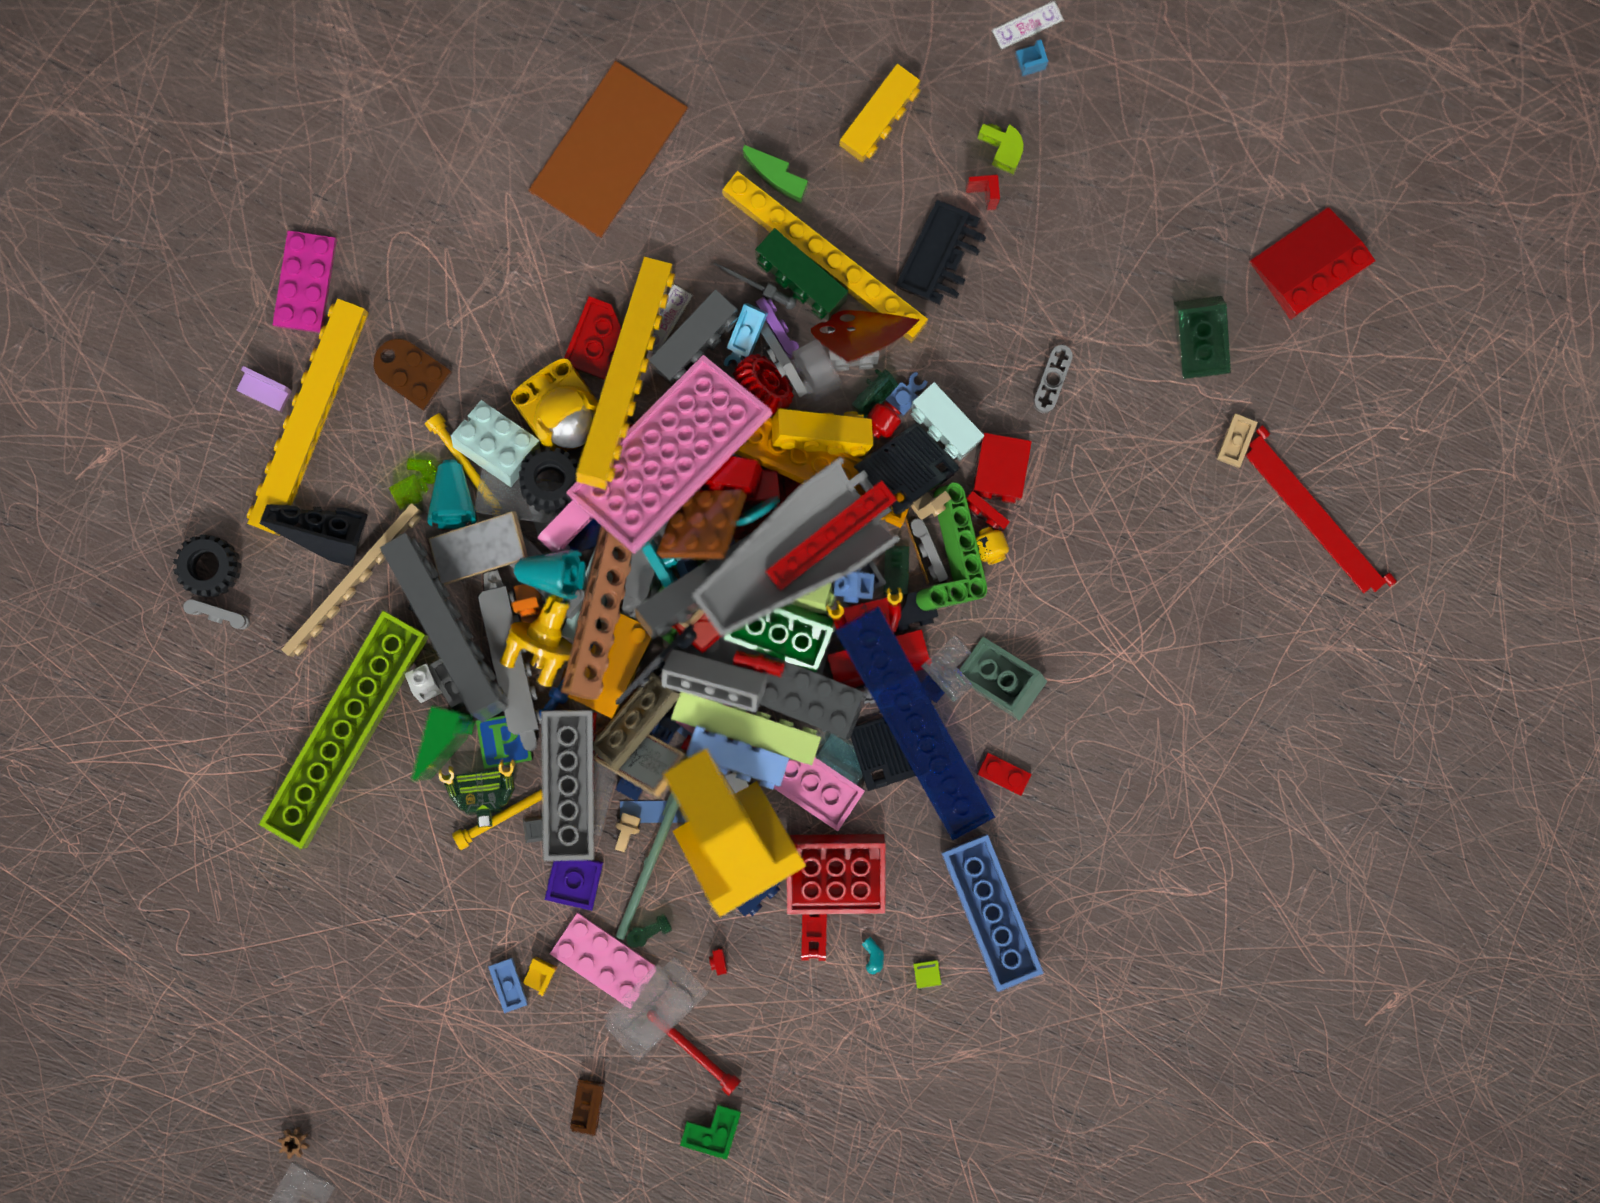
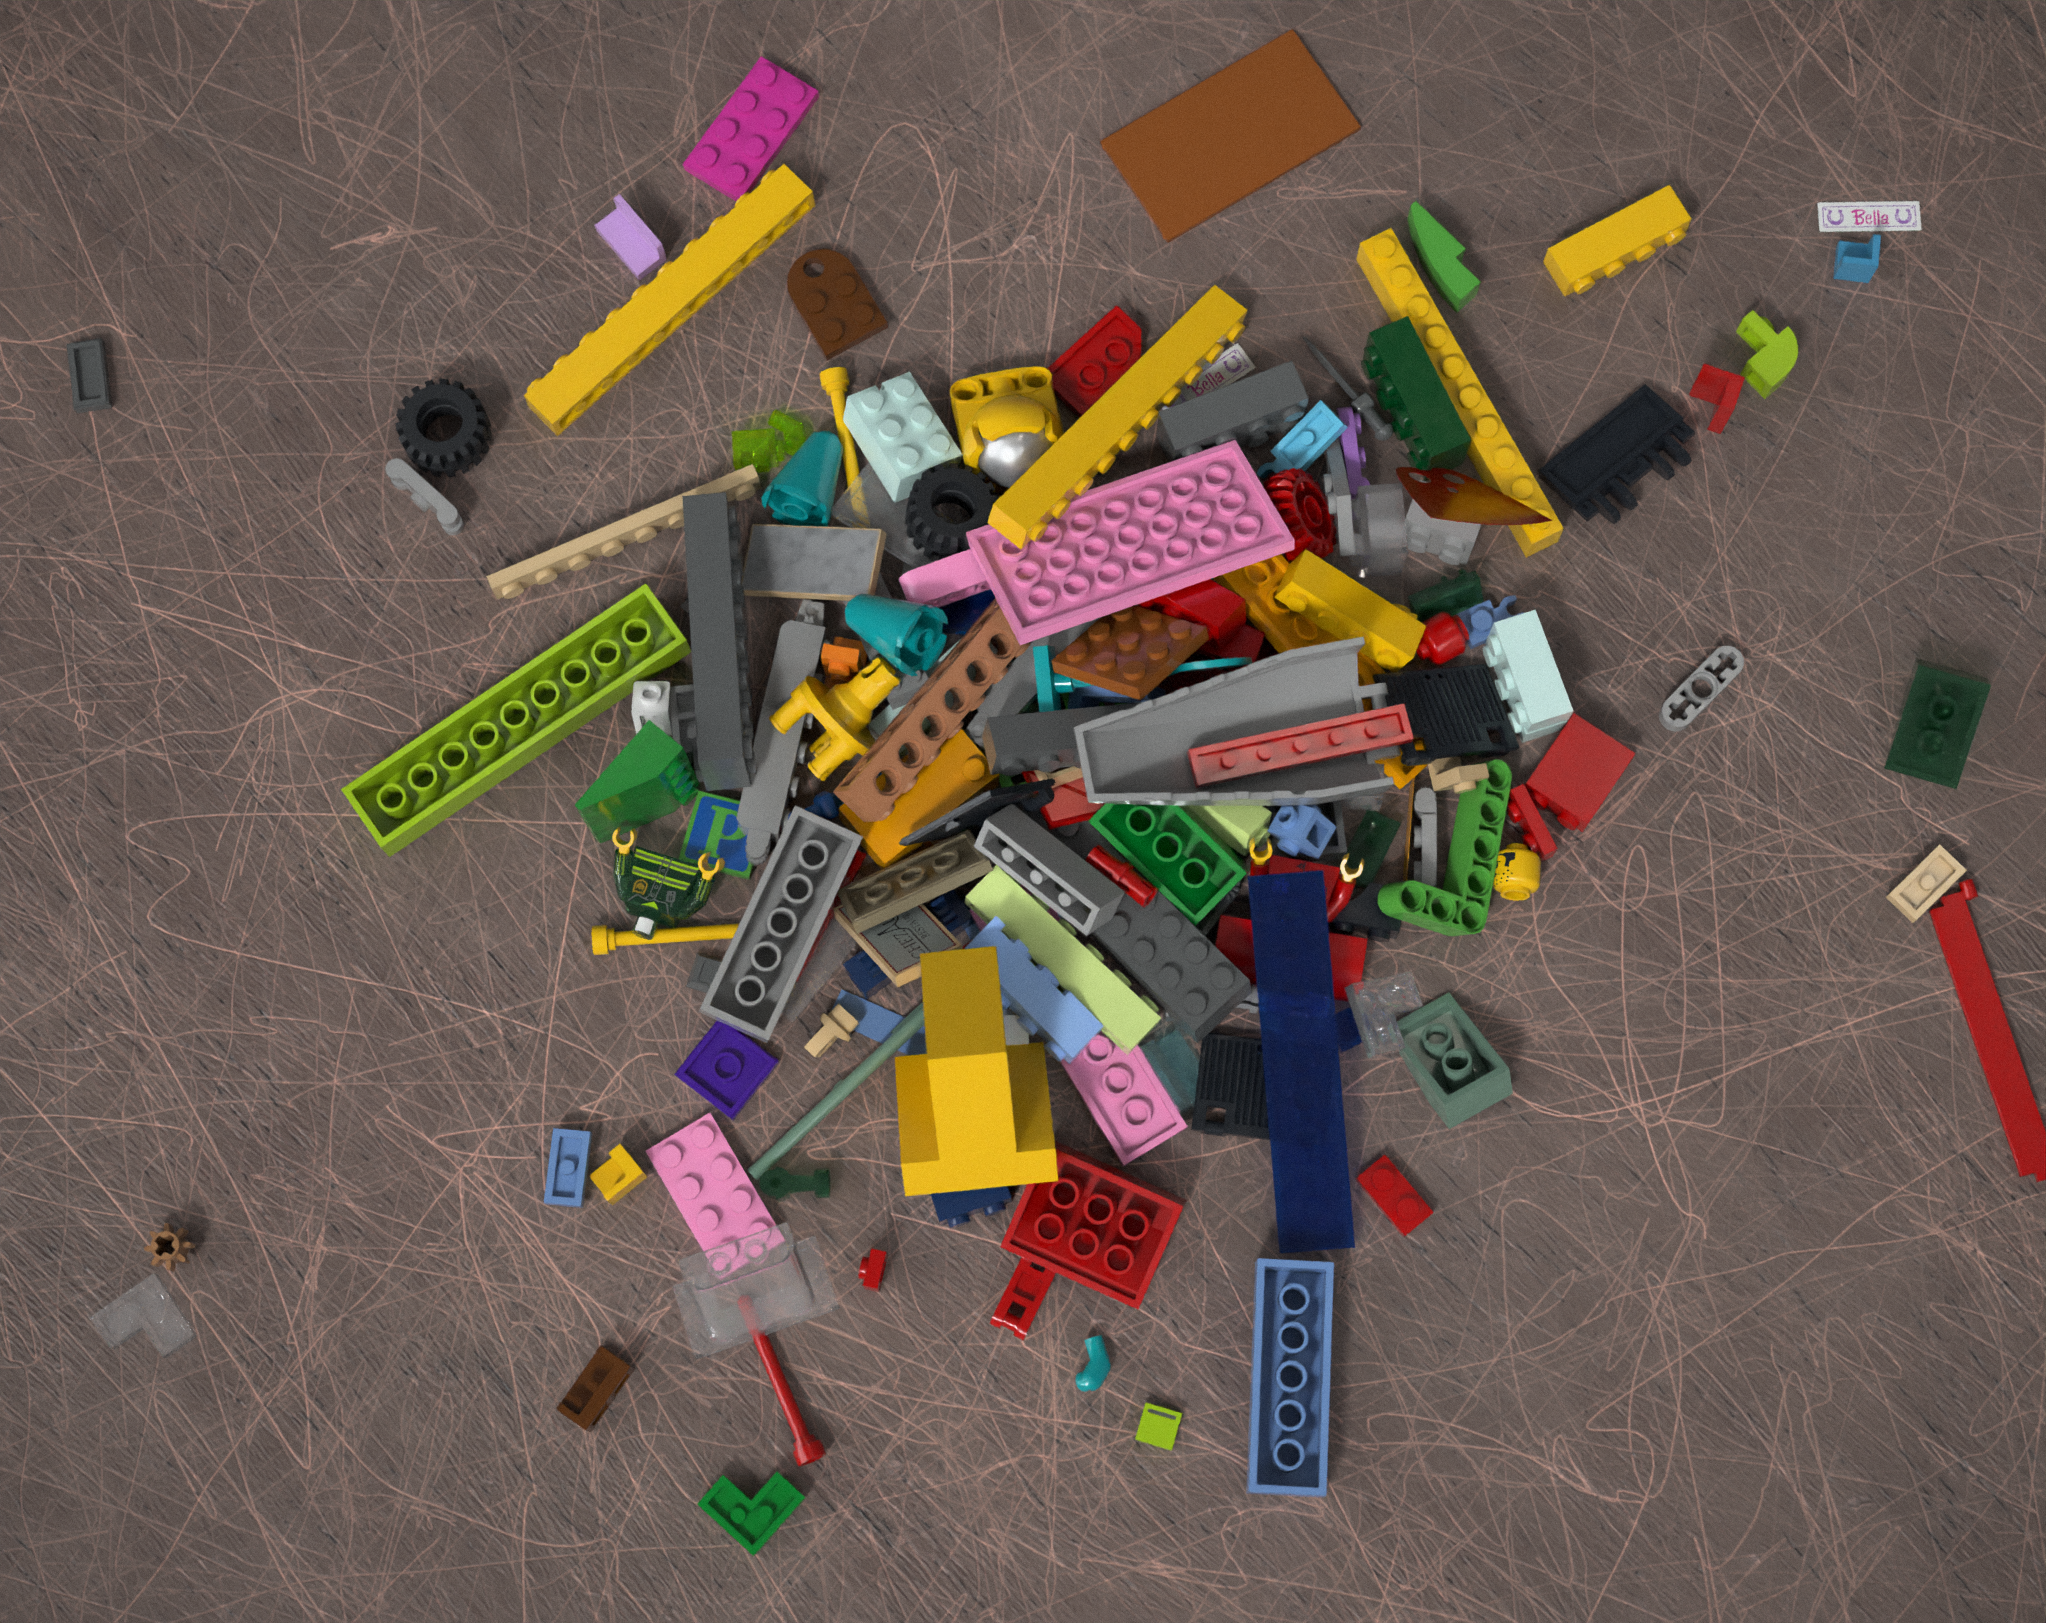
camera: 30 degrees right, 10 degrees down
(326, 533) = (622, 457): black wedge -> none

